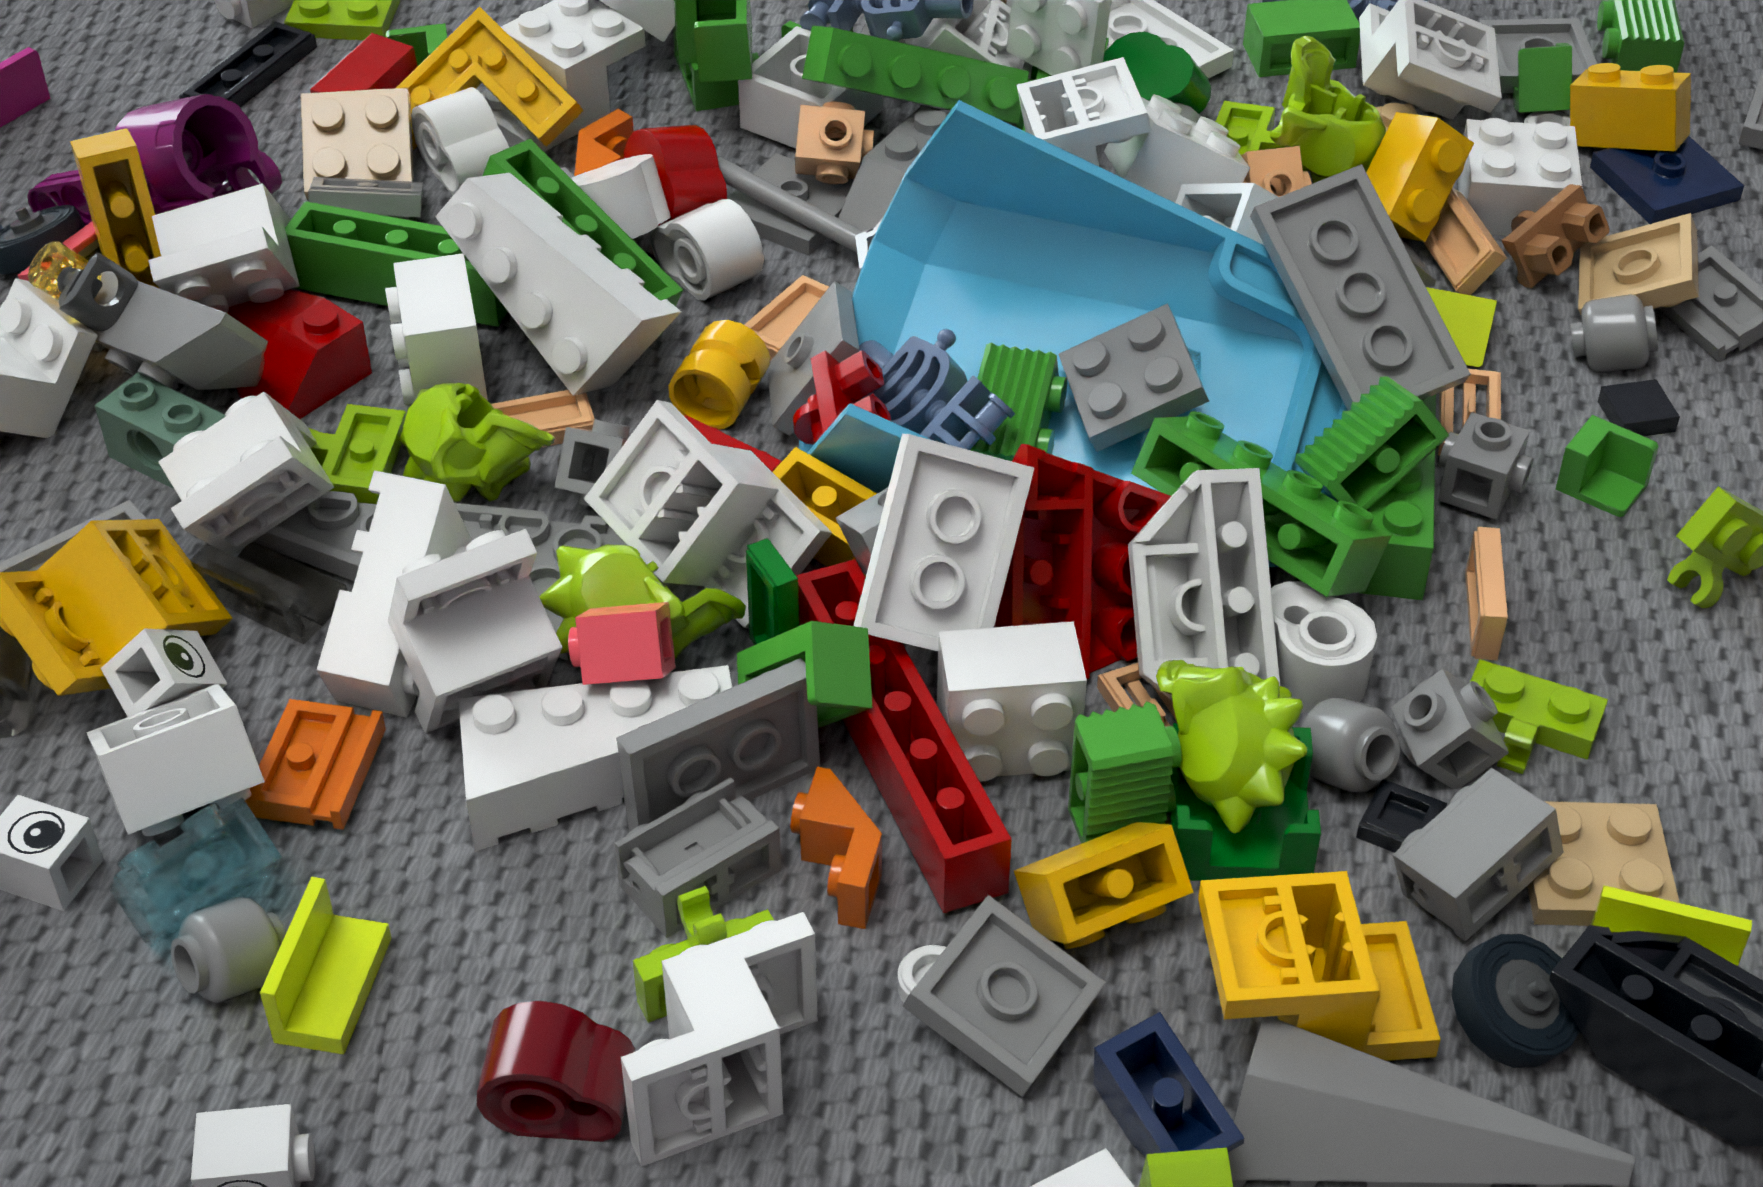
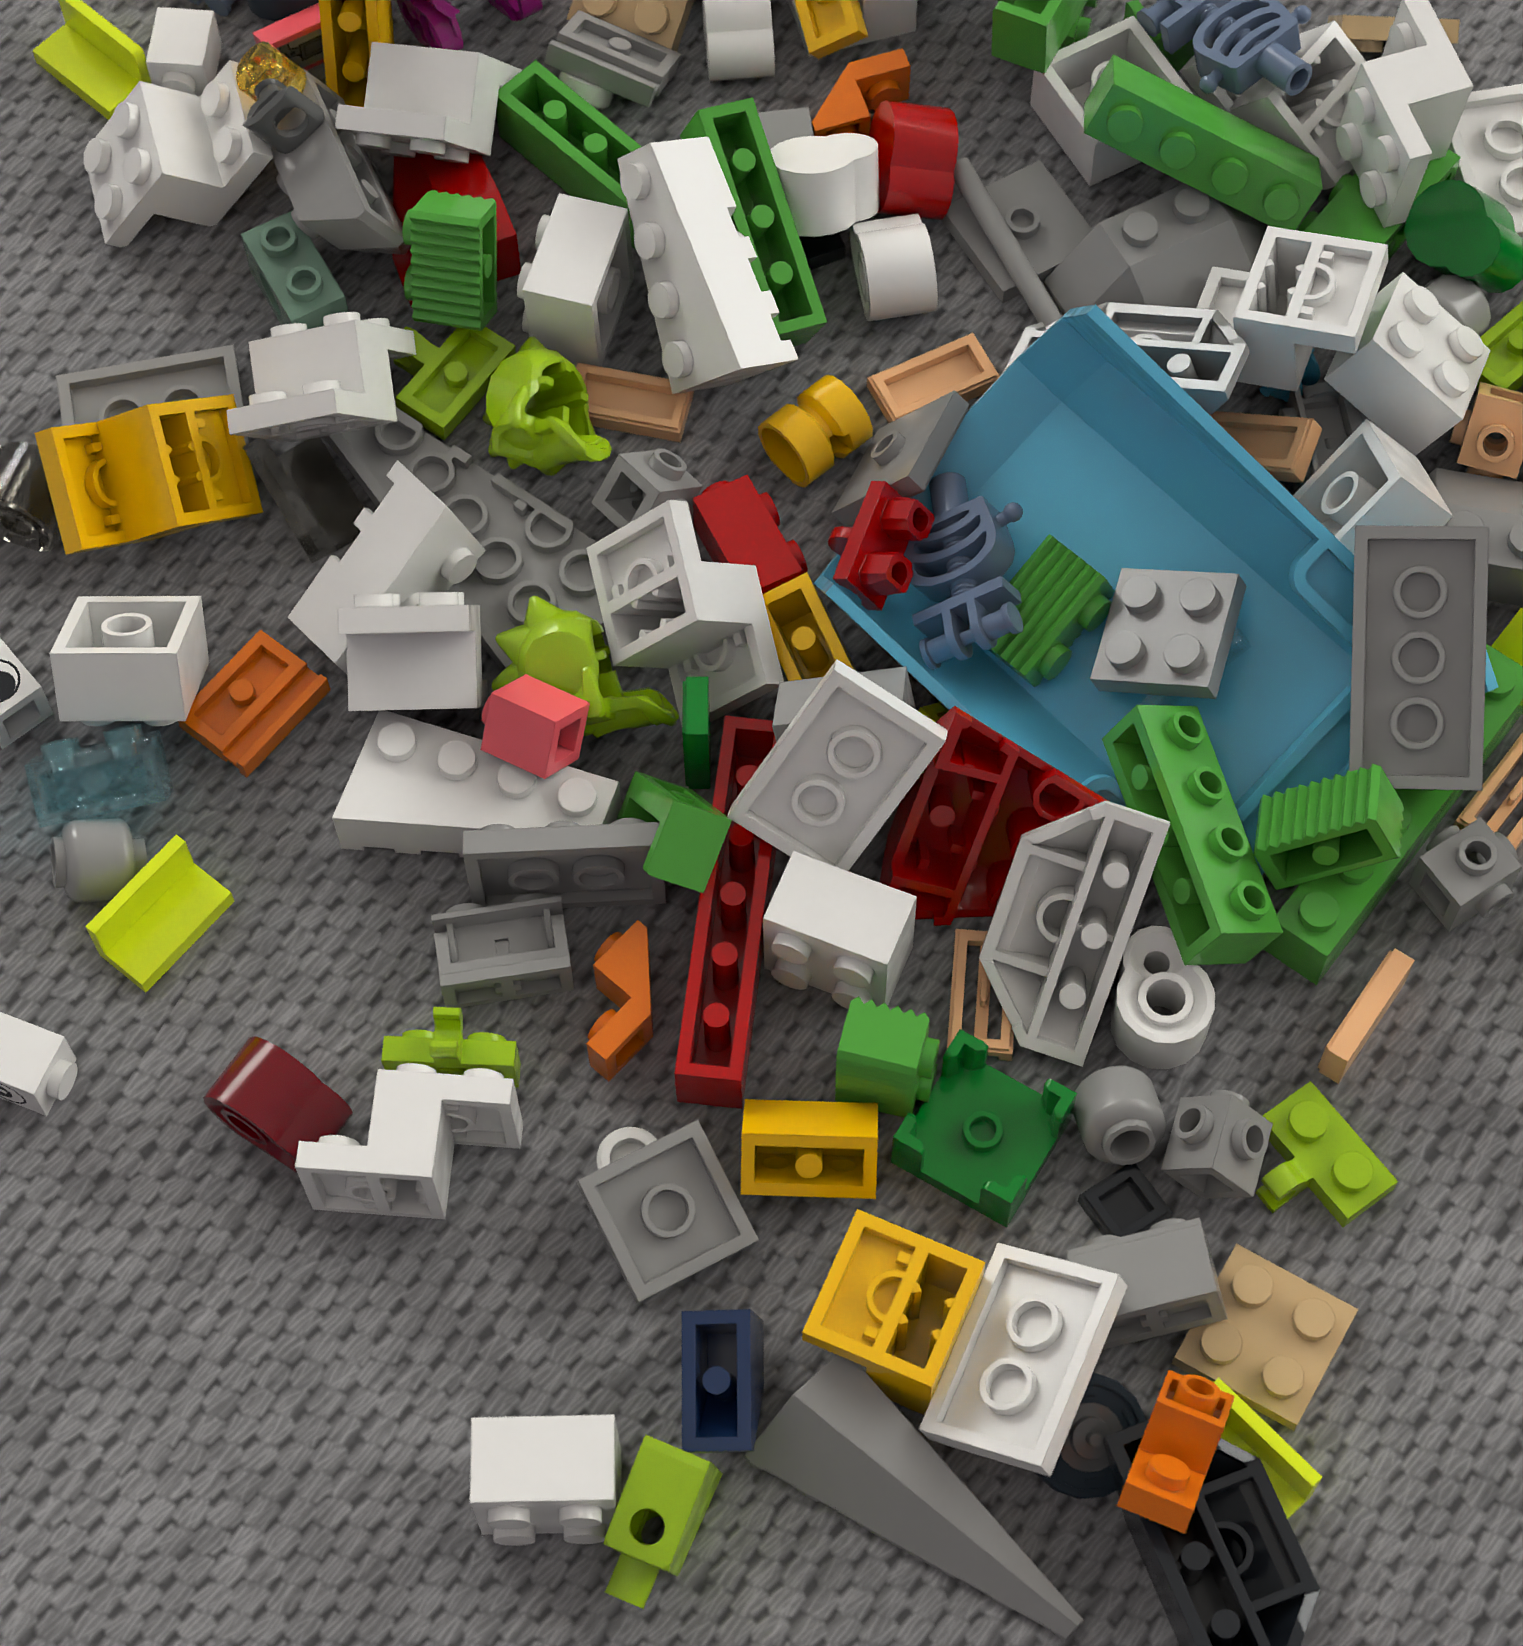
camera: 30 degrees right, 20 degrees up
(160, 668) = (166, 562): white brick -> none
(317, 349) = (452, 260): none -> bright green brick
(831, 142) = (1062, 183): light nougat brick -> none
(1233, 736) = (991, 1068): lime head -> none
(1437, 946) = (1023, 1358): none -> white plate
(1626, 939) = (1176, 1450): none -> orange slope

